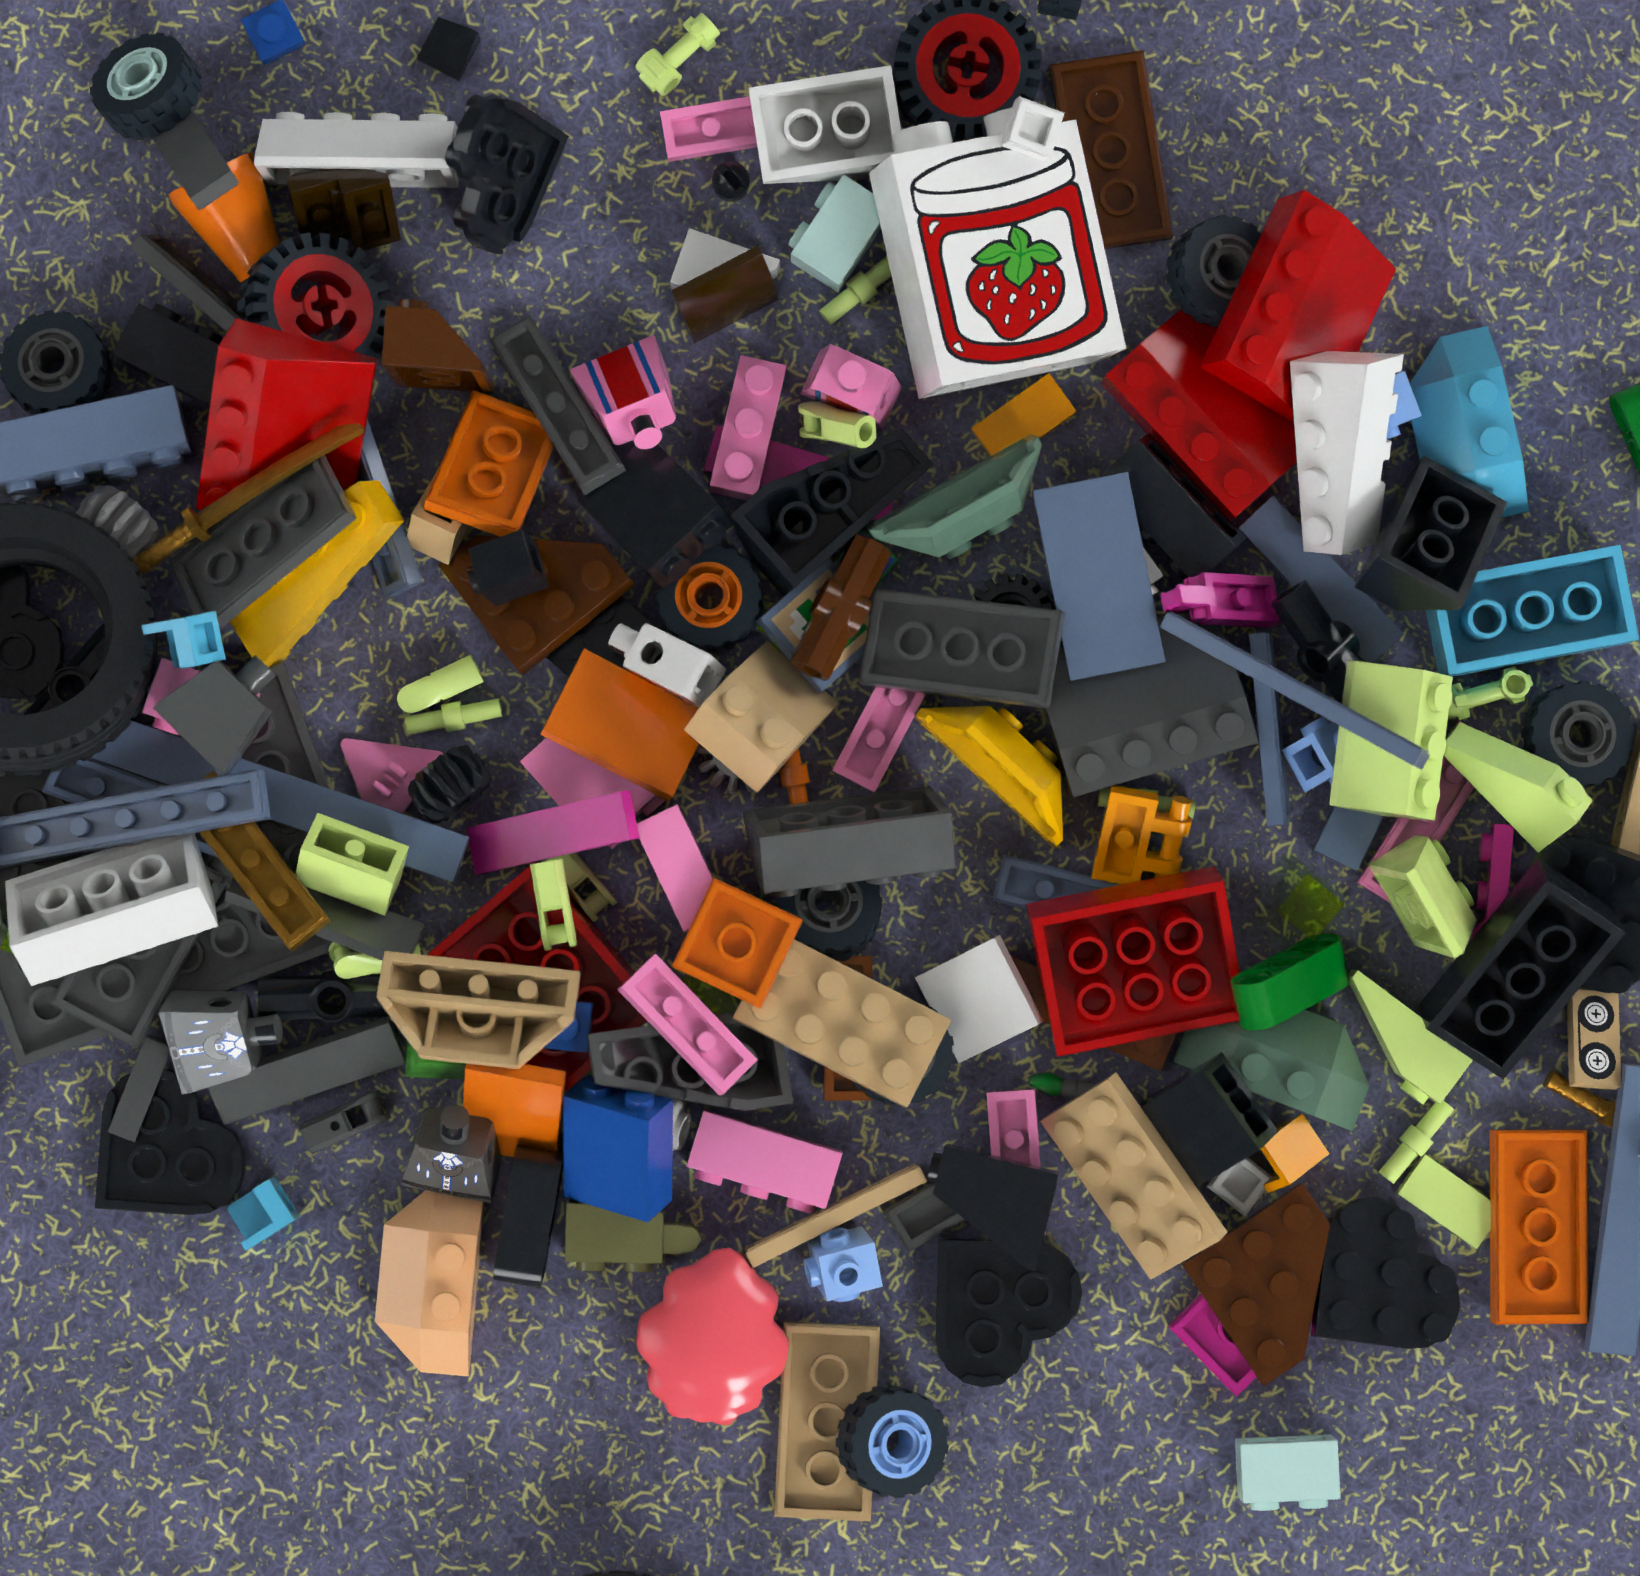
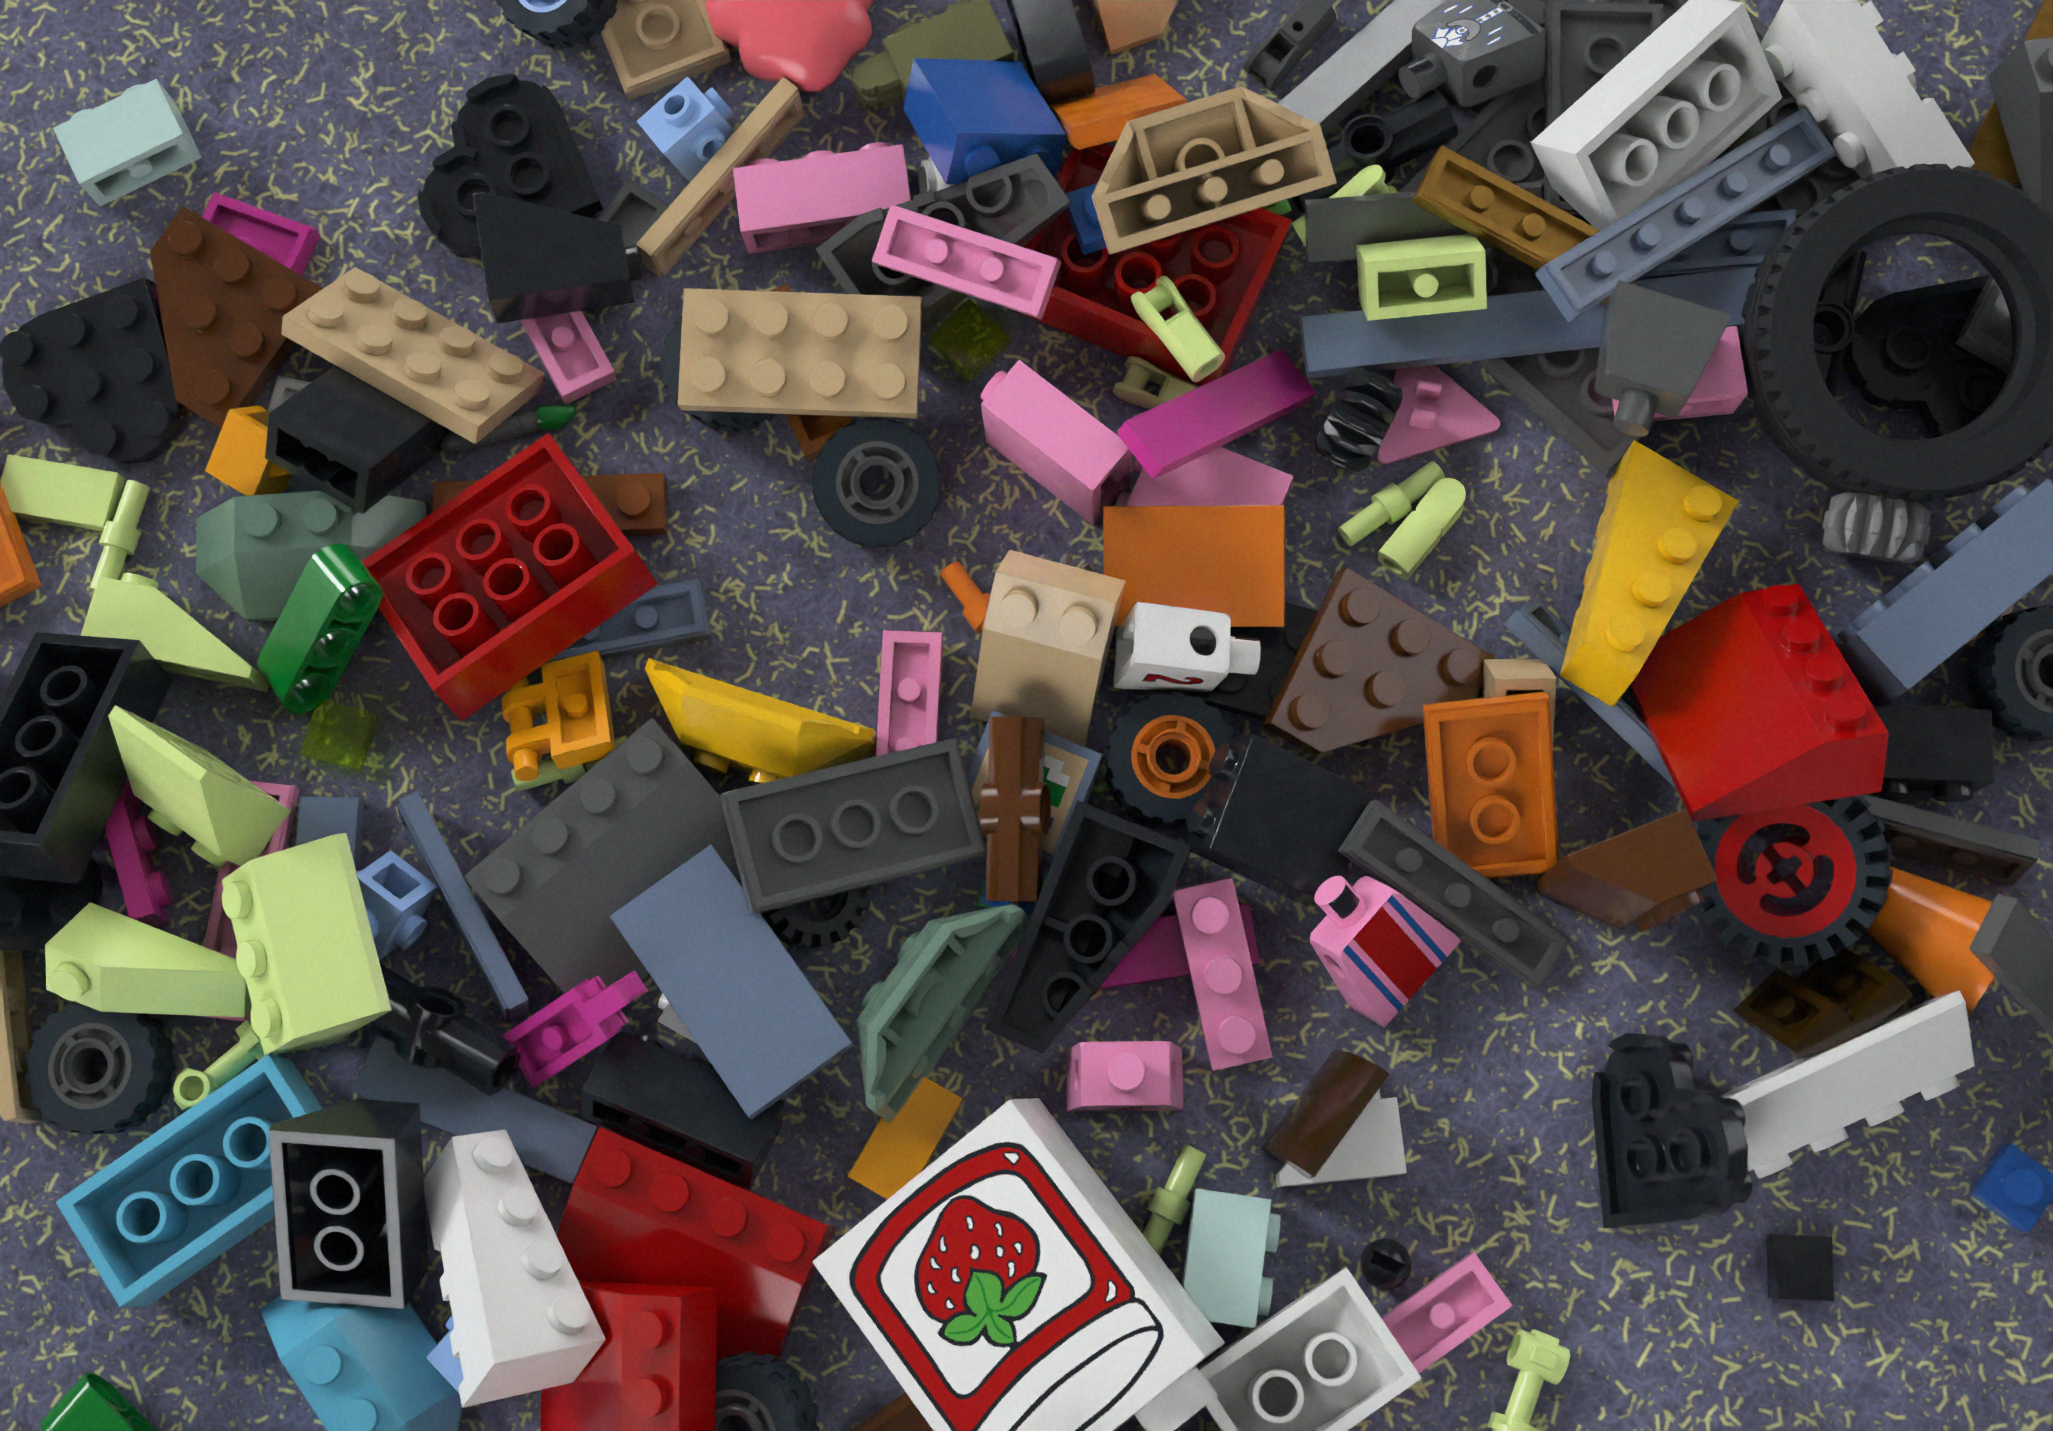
camera: 165 degrees right, 10 degrees down
(191, 639) = (1729, 413): medium azure panel -> none
(198, 523) = (1789, 557): pearl gold sword -> none
(262, 542) = (1708, 568): dark grey tile -> none
(453, 1154) = (1154, 48): dark grey torso -> none
(507, 568) = (1416, 669): black brick -> none
(737, 943) = (951, 369): orange tile -> none
(836, 425) = (1119, 1020): yellowish green bar -> none
(850, 841) = (884, 557): dark grey slope -> none
(981, 997) = (665, 464): white tile -> none
(1295, 690) = (432, 941): sand blue tile -> none

